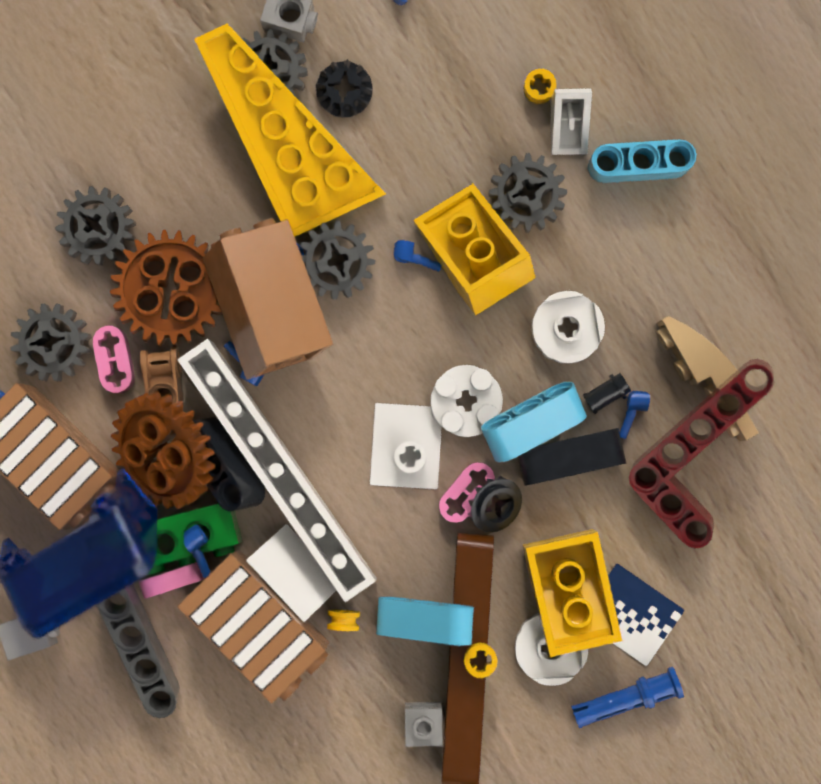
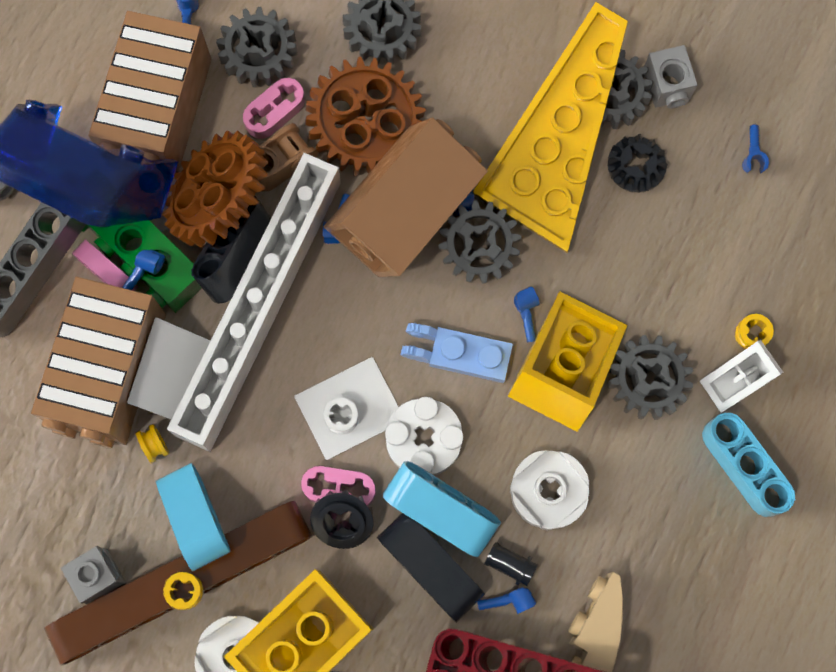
camera: 55 degrees right, 10 degrees down
(416, 329) = (460, 352): none -> light blue hinge

